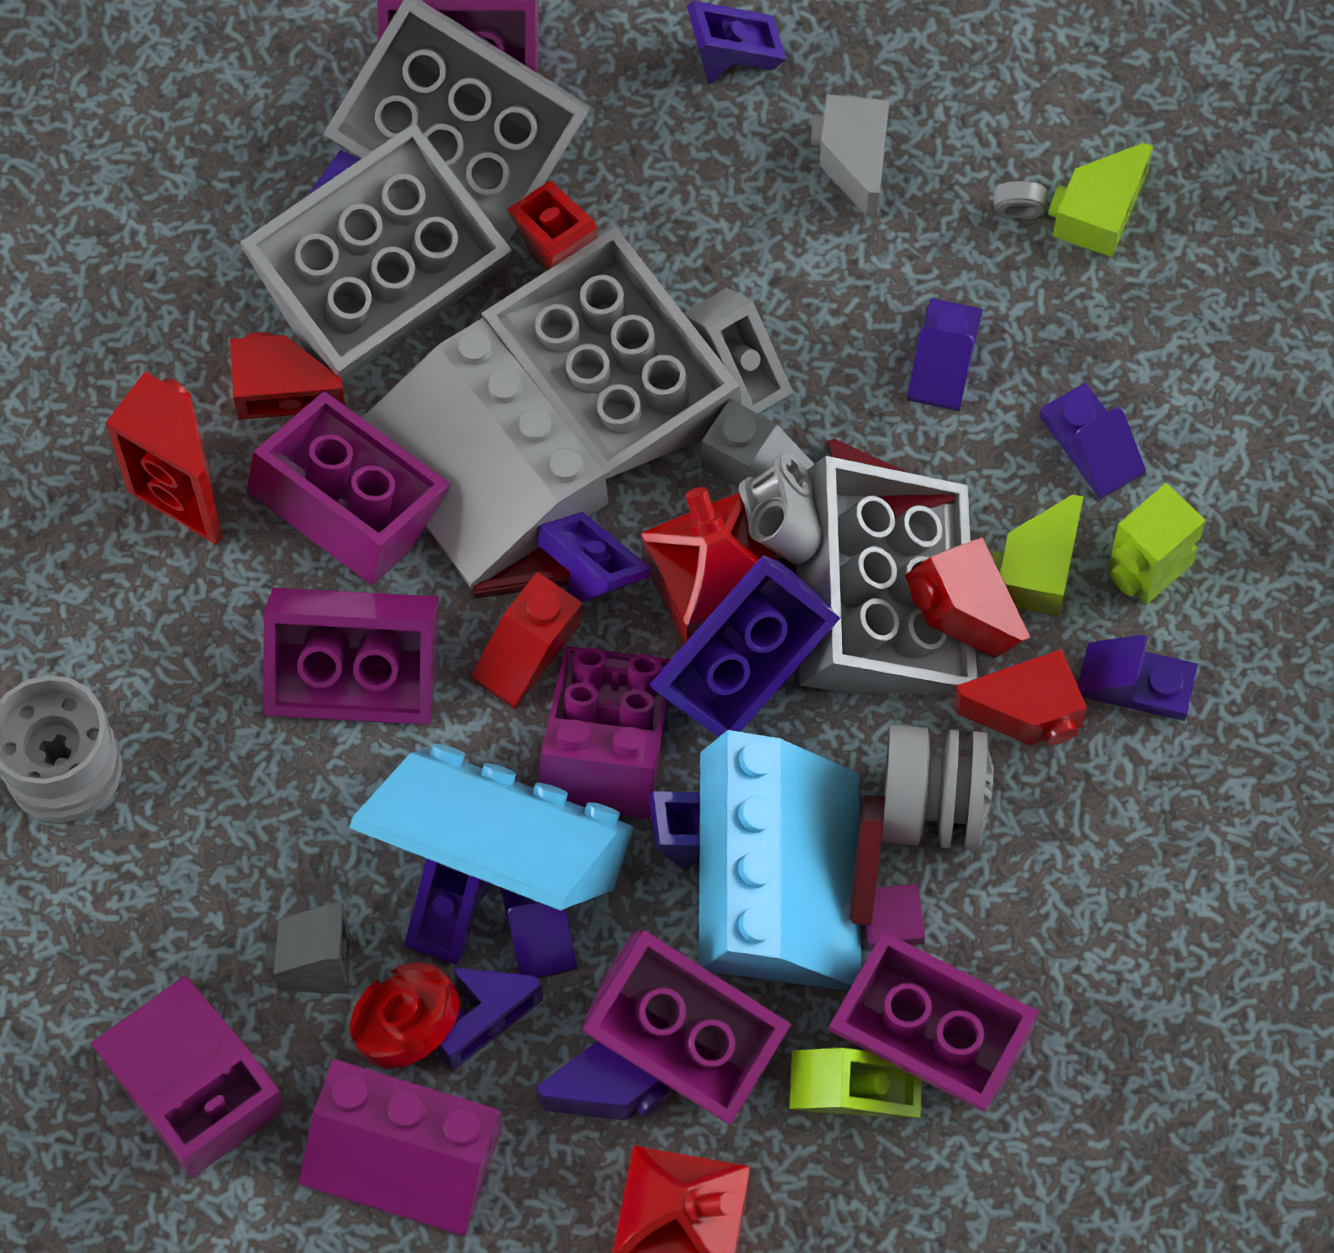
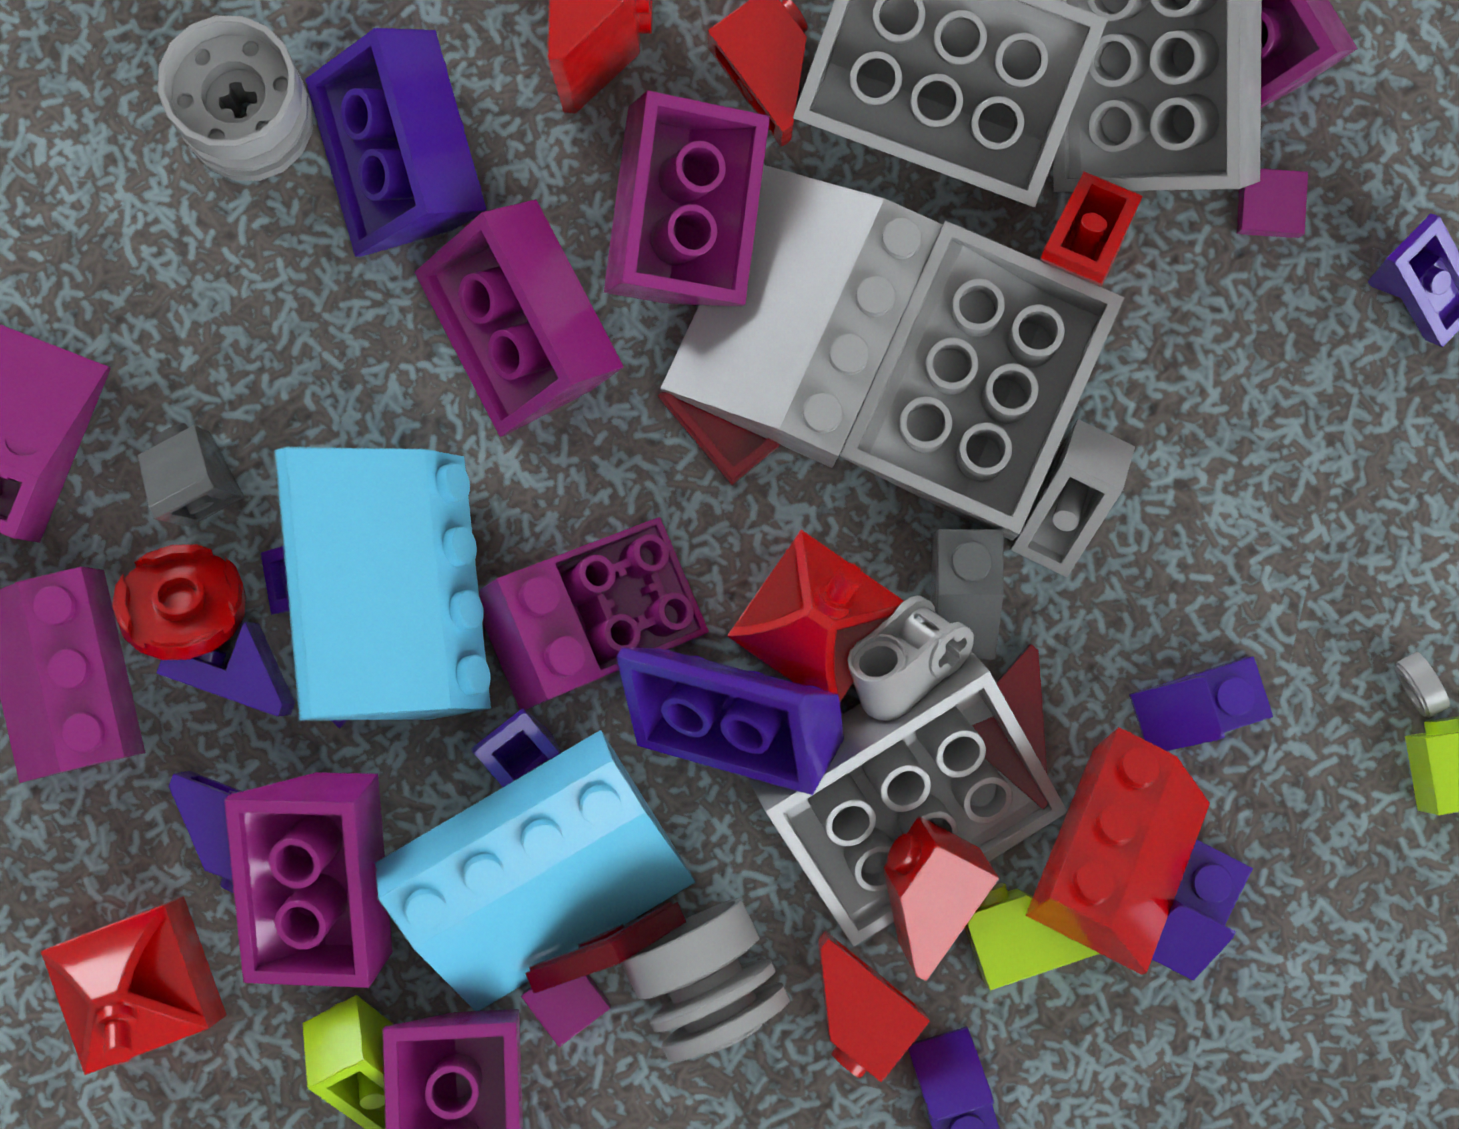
camera: 55 degrees right, 20 degrees up
(162, 666) = (395, 140): none -> dark purple slope
(527, 640) = (631, 480): red slope -> none
(592, 556) = (751, 494): dark purple slope -> none
(612, 111) = (1274, 204): none -> magenta tile
(853, 146) = (1379, 478): light grey slope -> none
(1012, 453) = (1121, 850): none -> red slope
(1155, 544) = (1102, 1053): lime brick -> none

